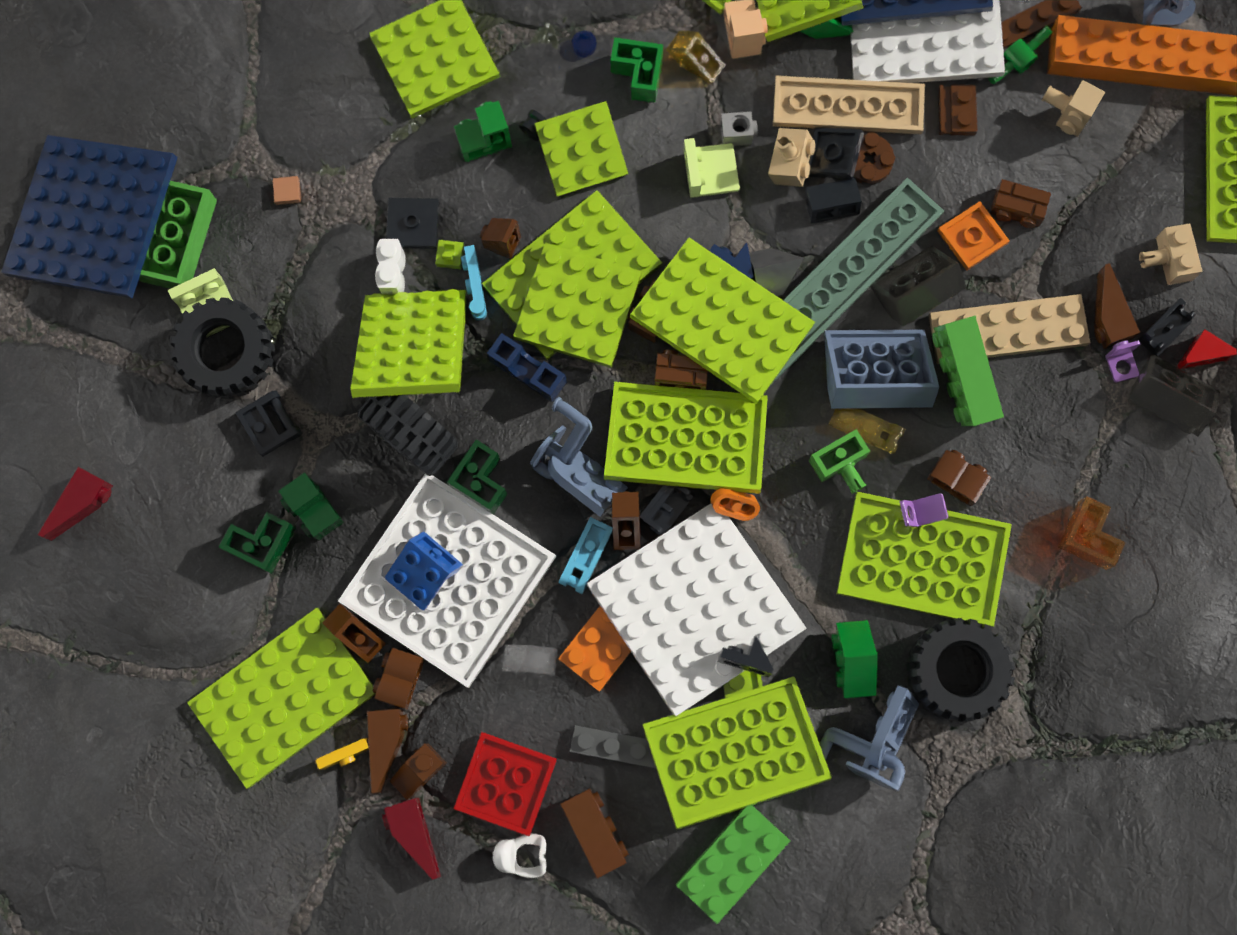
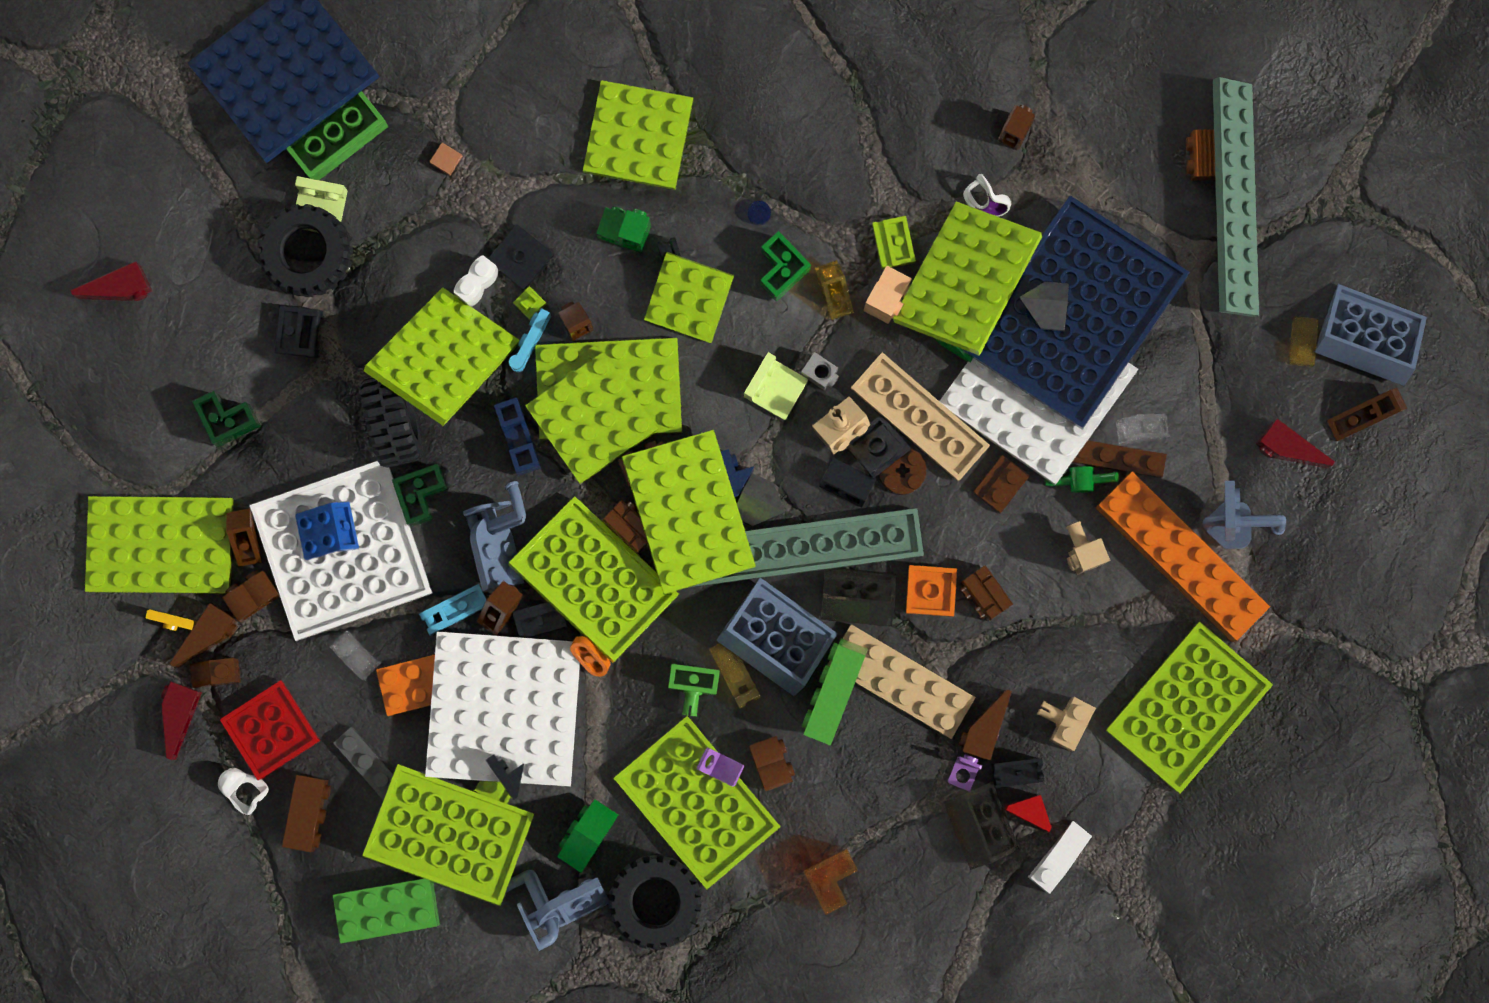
camera: 30 degrees right, 5 degrees up
(307, 501) = (282, 419): dark green brick -> none

